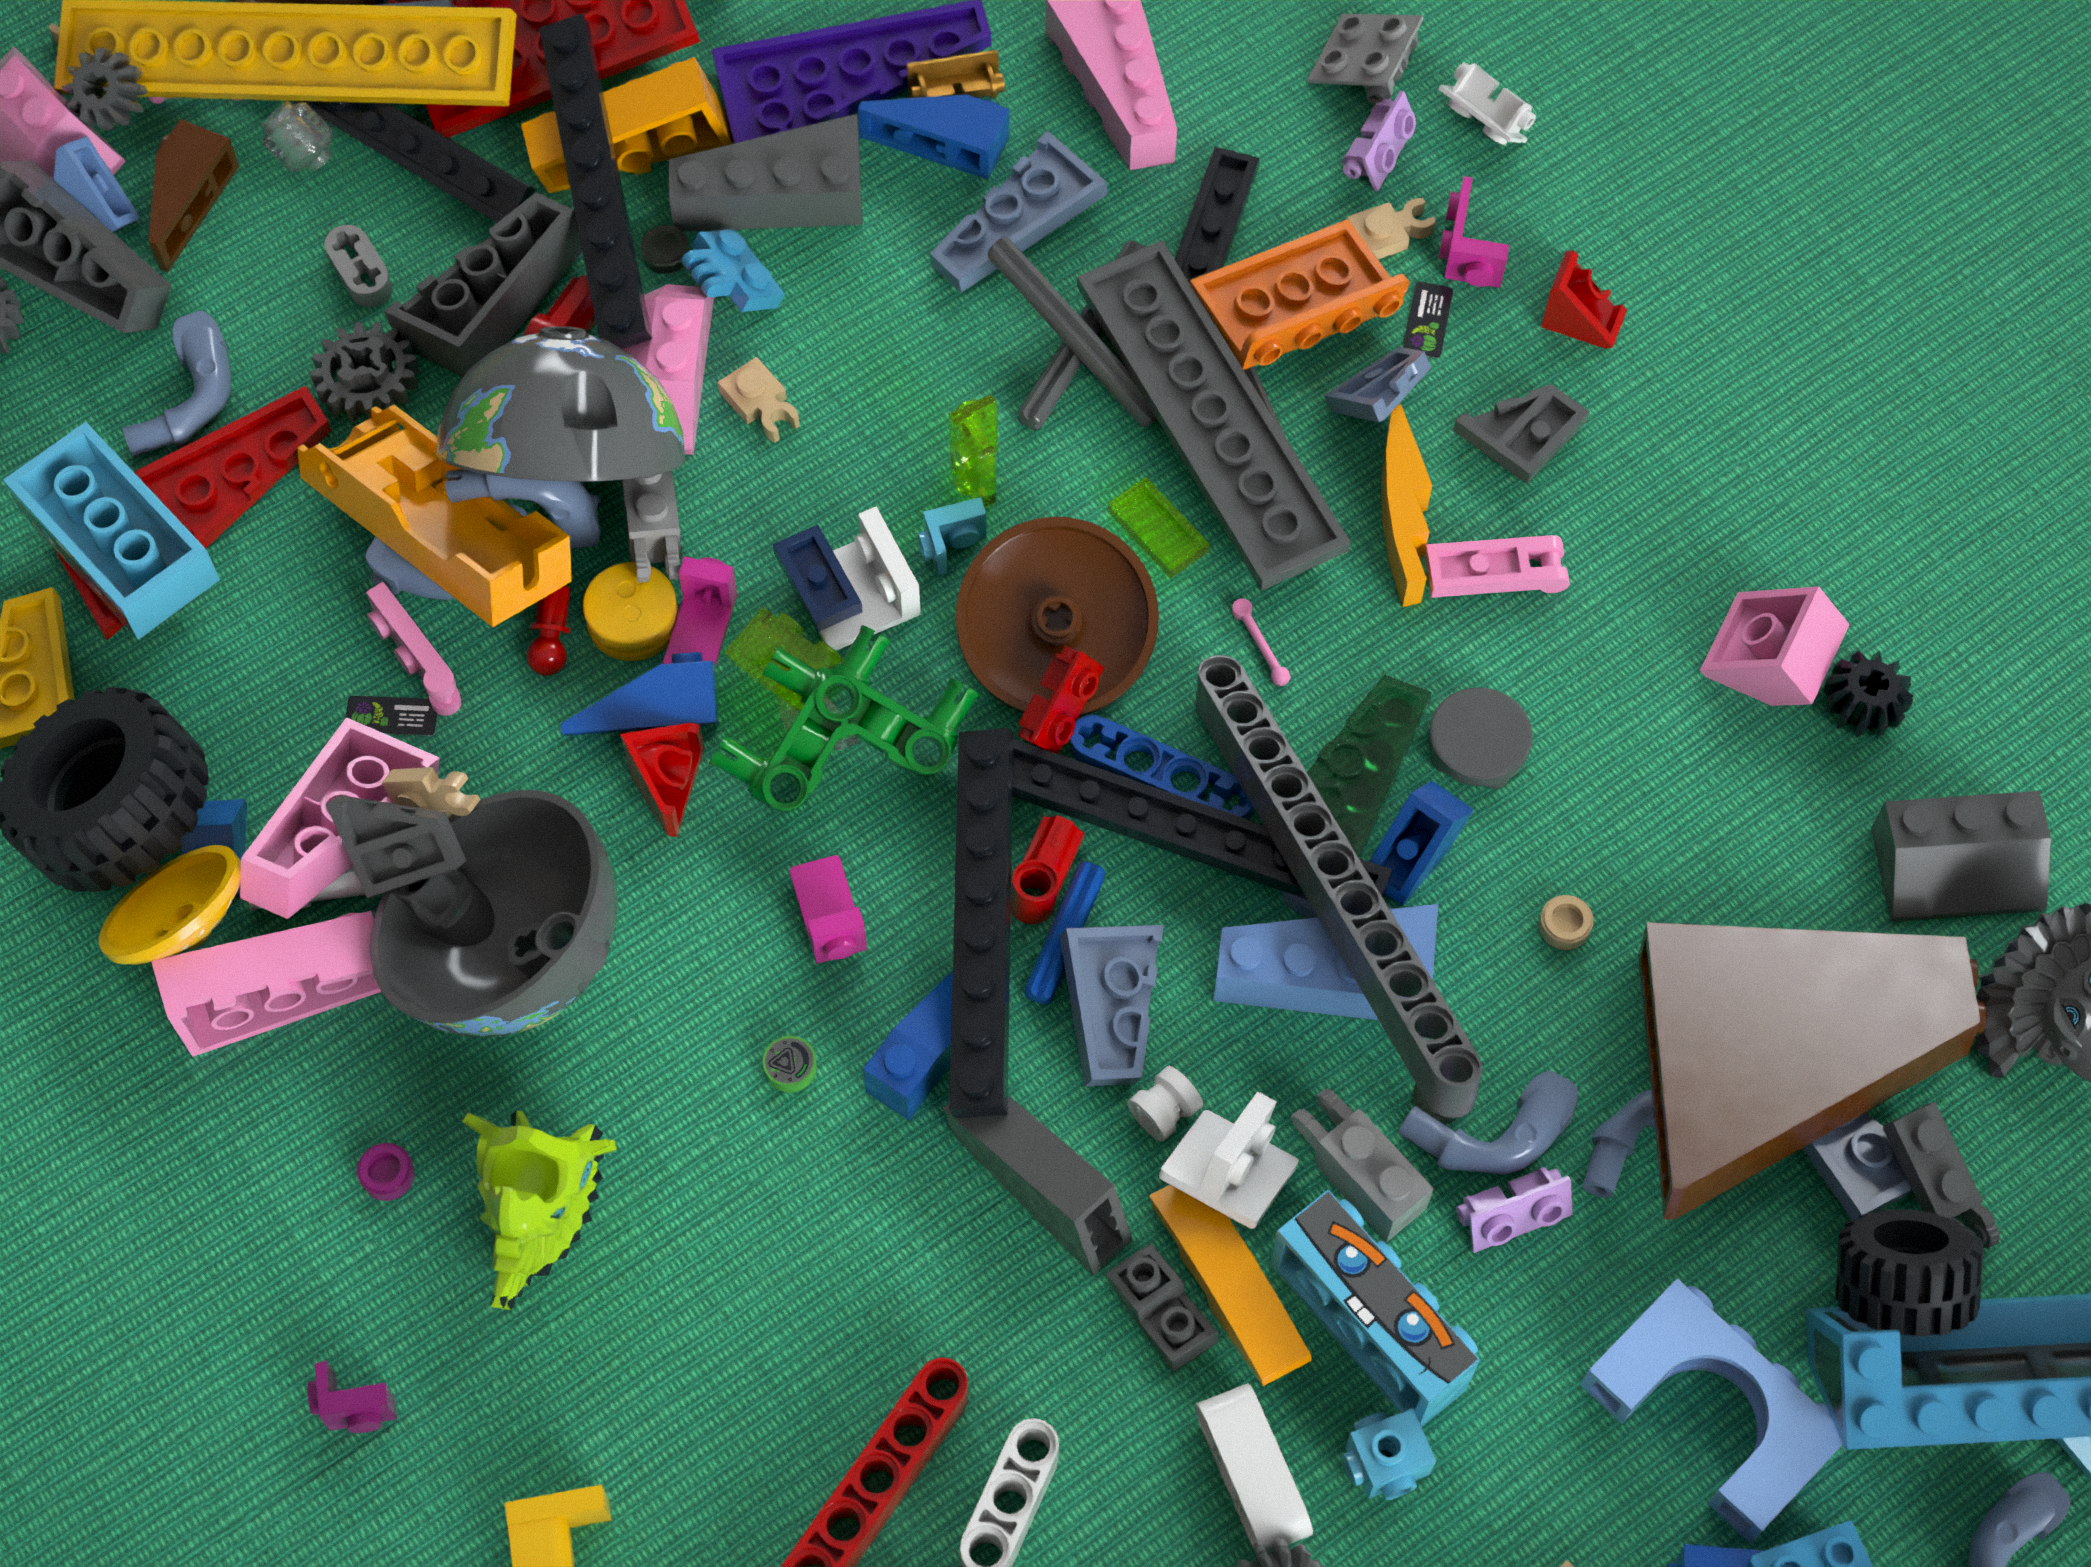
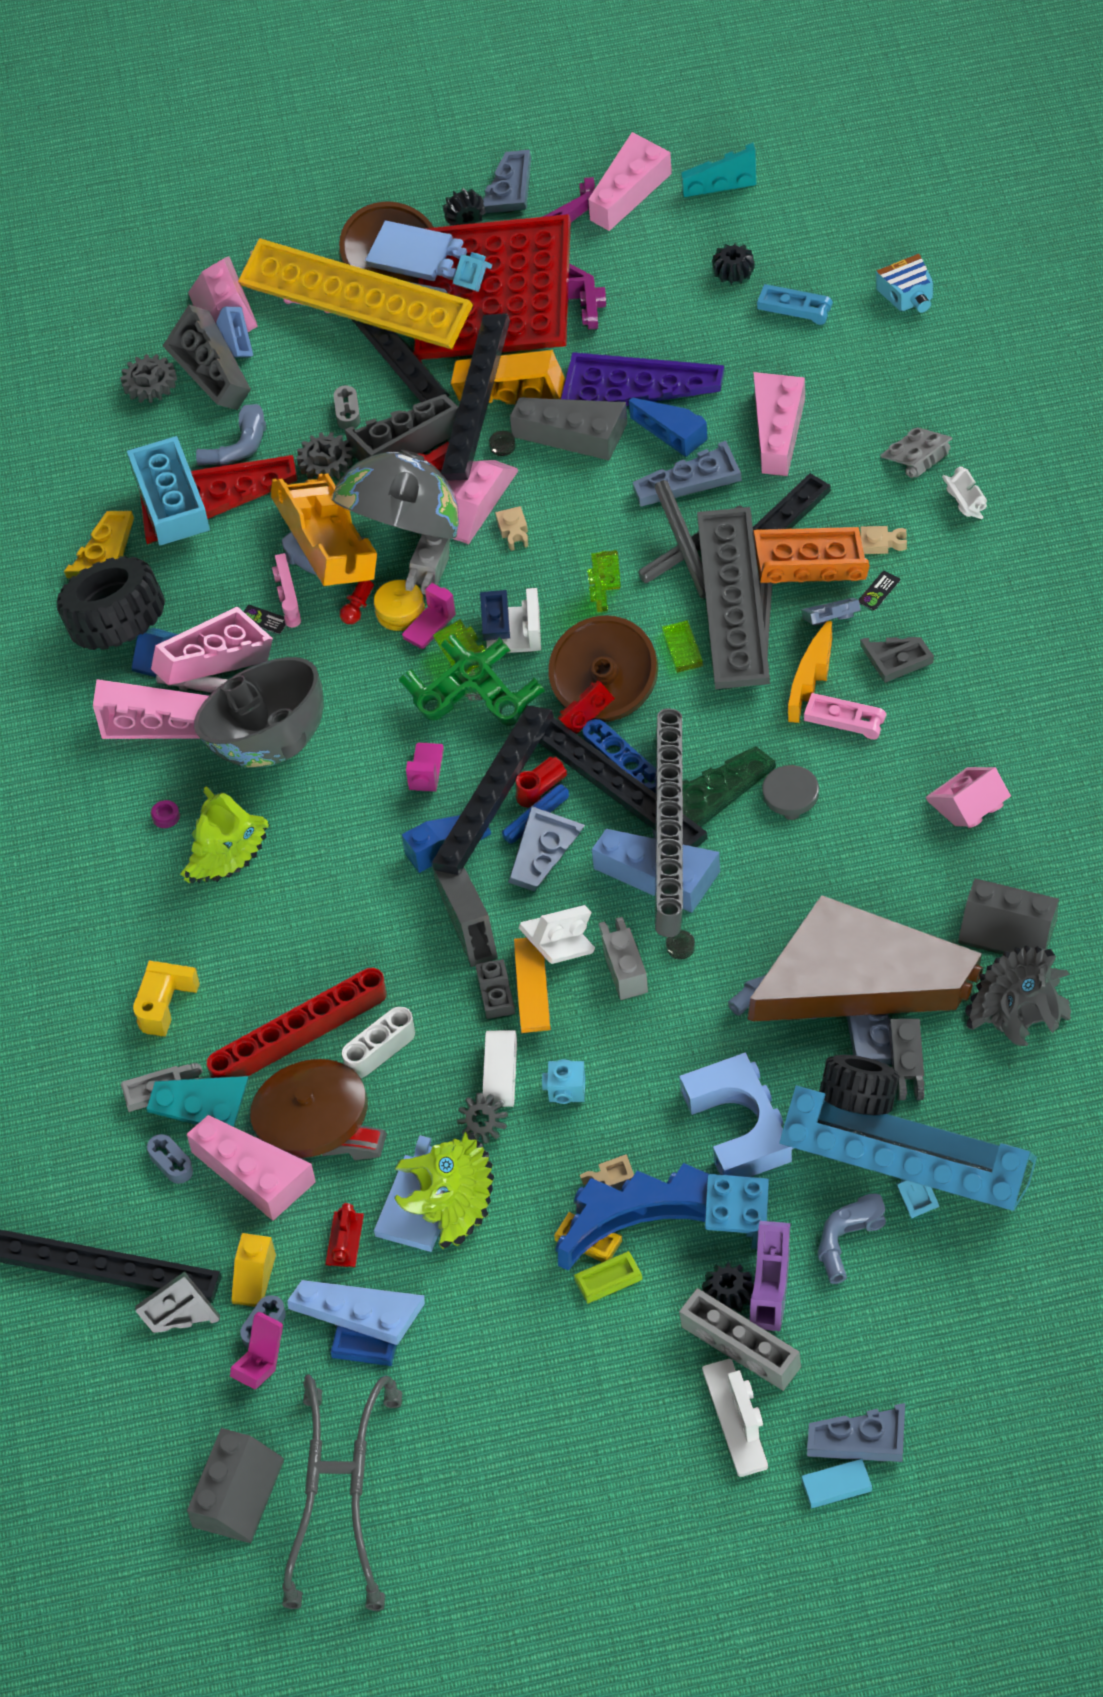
camera: 30 degrees right, 10 degrees down
(89, 84) = (260, 287): dark grey gear -> none
(172, 907) = (119, 665): yellow dish -> none
(188, 179) = (280, 345): reddish brown slope -> none
(297, 137) = (344, 337): clear head -> none
(354, 1408) = (102, 903): magenta bracket -> none
(394, 842) = (229, 662): dark grey wing -> none
(425, 790) = (254, 649): tan plate -> none
(566, 502) = (386, 536): sand blue piece -> none
(656, 699) = (389, 646): blue slope -> none
(665, 768) = (379, 678): red slope -> none
(731, 269) = (529, 460): dark azure hinge -> none
(789, 1064) = (374, 828): tile -> none
(951, 526) = (573, 612): medium azure bracket -> none
(957, 75) = (695, 400): pearl gold hinge -> none
(1165, 1103) = (542, 901): white wheel -> none
(1242, 611) = (704, 698): bright pink hinge -> none
(1374, 1308) = (590, 1016): brick -> none
(1389, 127) = (901, 495): lavender hinge -> none
(1420, 838) = (732, 824): blue slope -> none
(1470, 259) = (911, 563): dark pink bracket -> none
(1536, 1202) = (689, 1004): lavender hinge -> none
(1543, 1115) = (724, 966): sand blue piece -> none
(1565, 922) = (788, 889): tan tile -> none
(1580, 307) = (960, 602): red slope -> none
(1868, 694) = (1003, 832): black gear -> none

